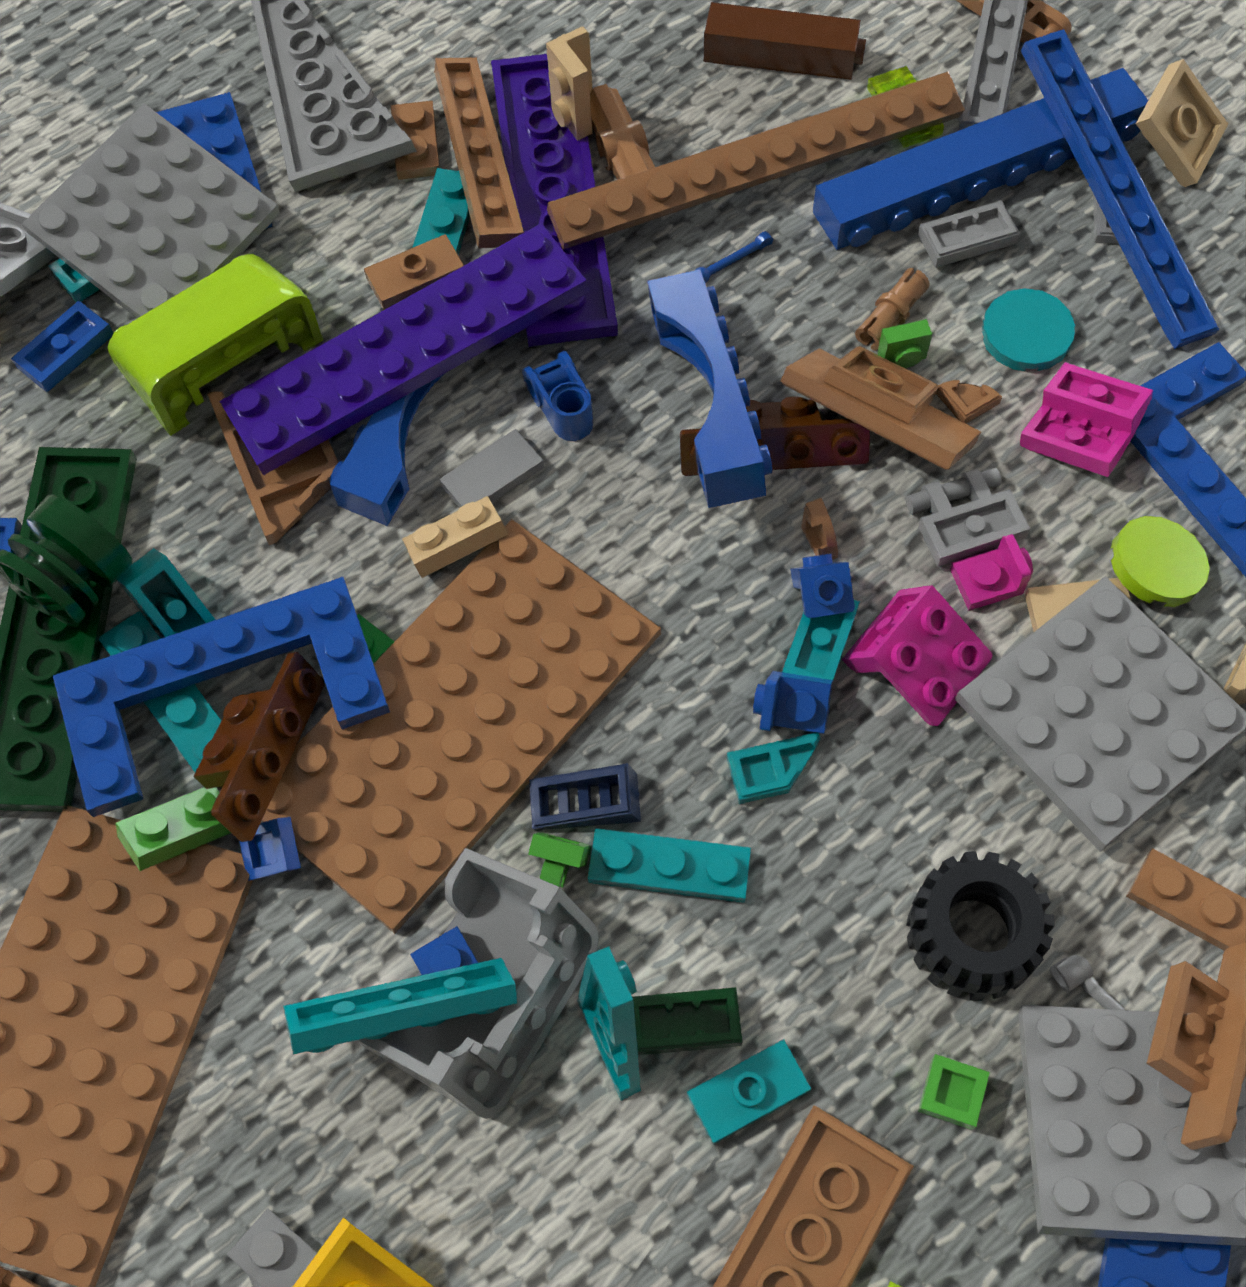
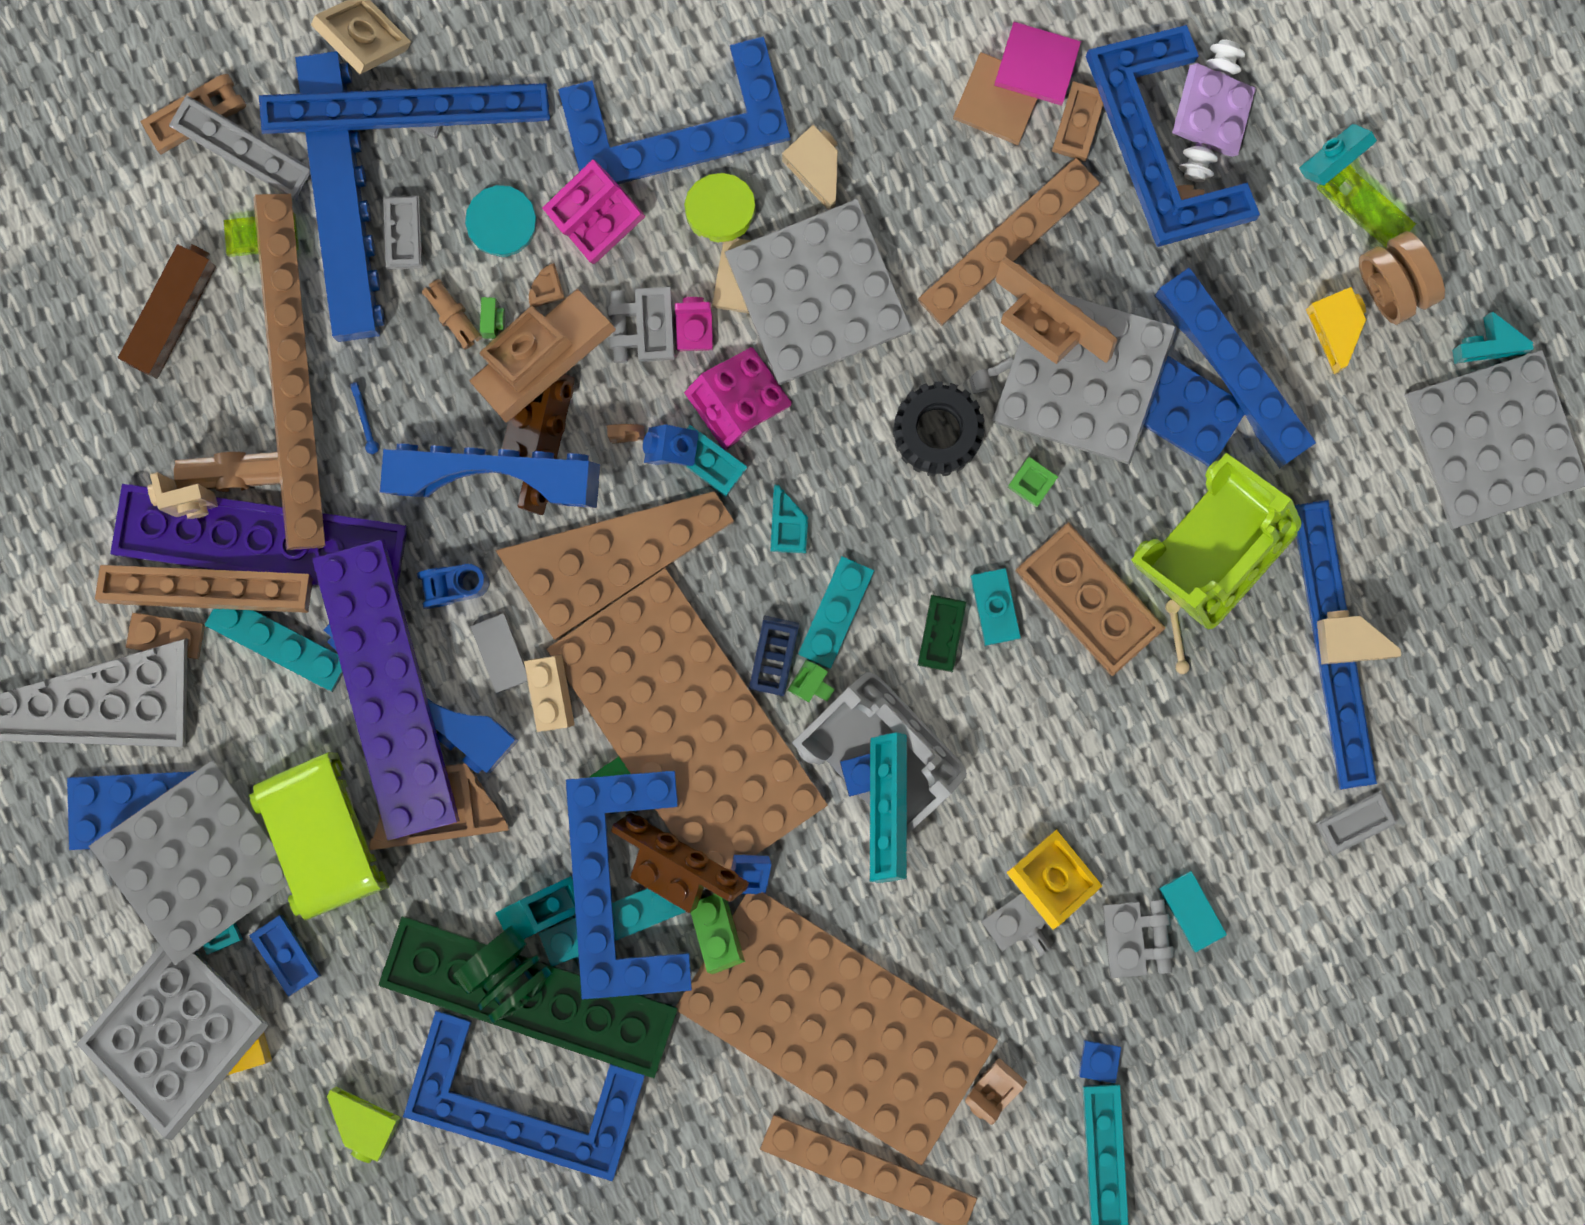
camera: 75 degrees left, 20 degrees up
(412, 270) = (311, 666): medium nougat plate -> none
(611, 1018) = (937, 677): teal wing -> none
(637, 545) = (592, 566): none -> medium nougat wing
(793, 702) = (750, 494): blue bracket -> none

